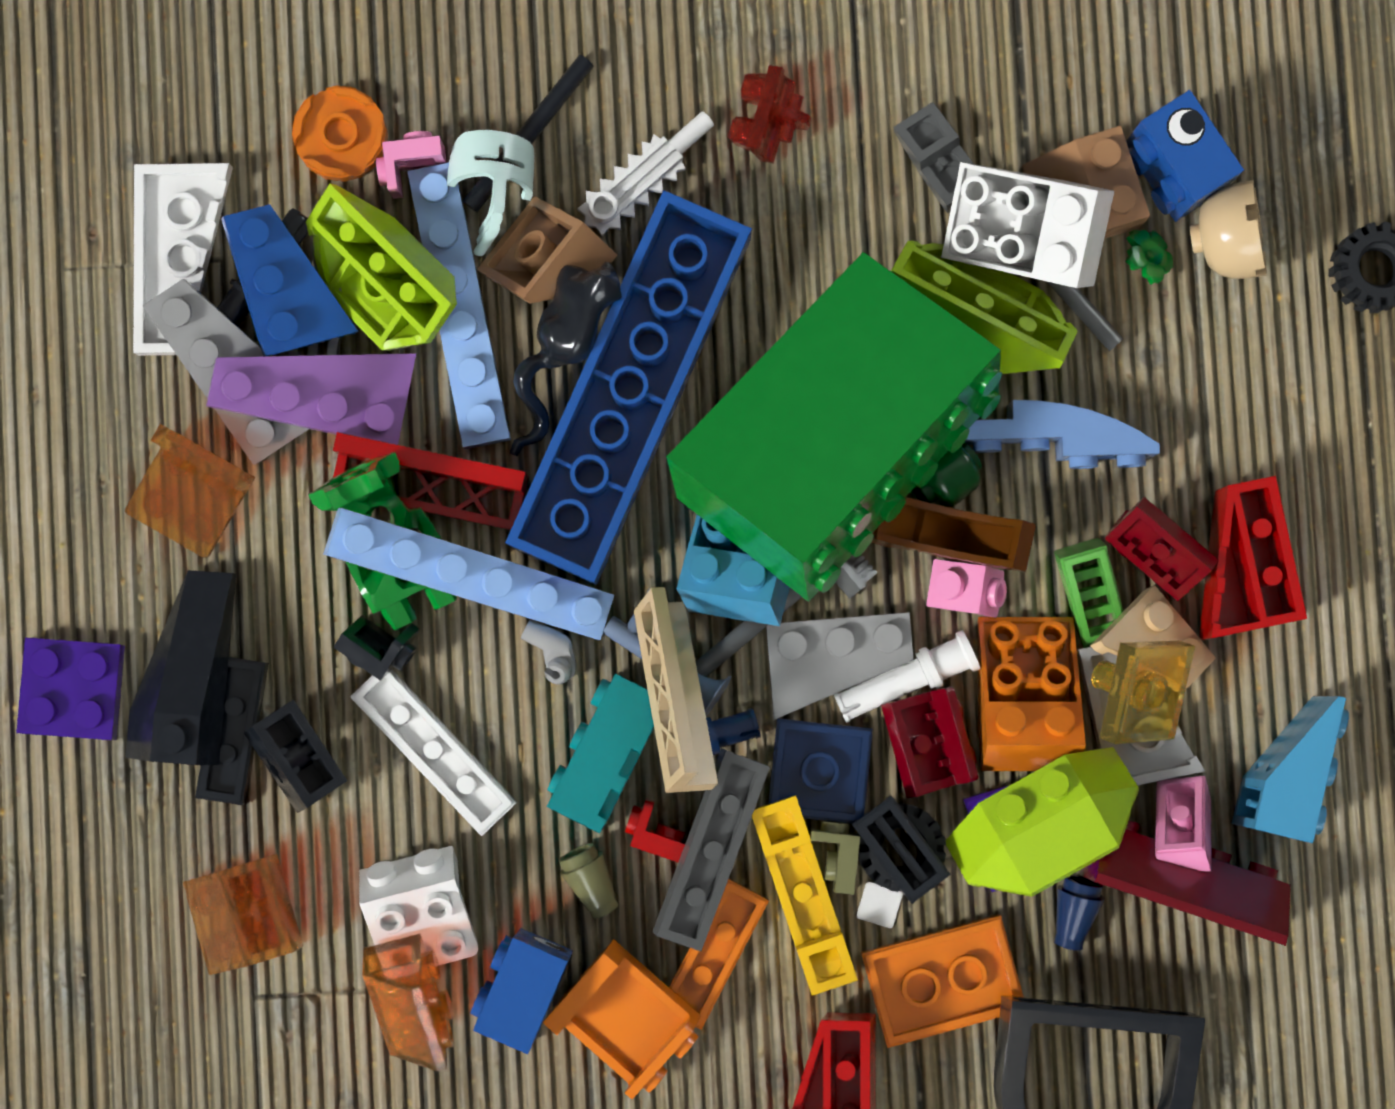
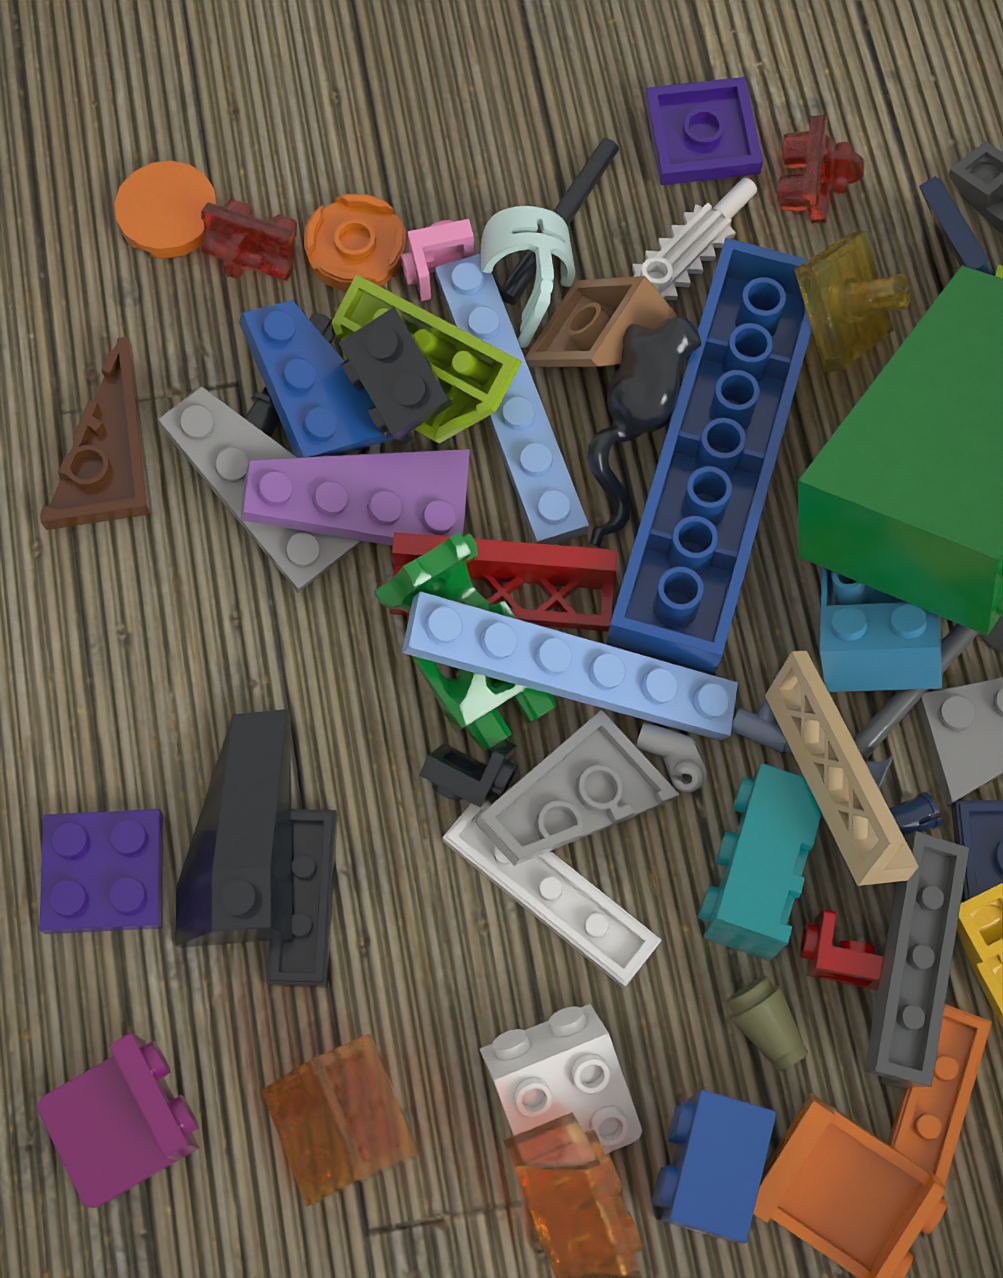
camera: 10 degrees left, 15 degrees down
(68, 892) = (119, 1122): none -> magenta bracket
(98, 331) = (106, 467): none -> reddish brown wing
(171, 79) = (162, 208): none -> orange tile
(173, 235) = (182, 347): white wing -> none
(188, 493) = (227, 621): clear orange bracket -> none
(238, 129) = (248, 241): none -> clear red hips
(295, 756) = (387, 910): black brick -> none
(349, 294) = (395, 375): none -> black bracket
(462, 674) = (574, 792): none -> light grey wing
(672, 58) = (703, 131): none -> dark purple plate
(762, 262) = (849, 300): none -> clear yellow tile
(877, 210) = (954, 227): none -> dark blue tile

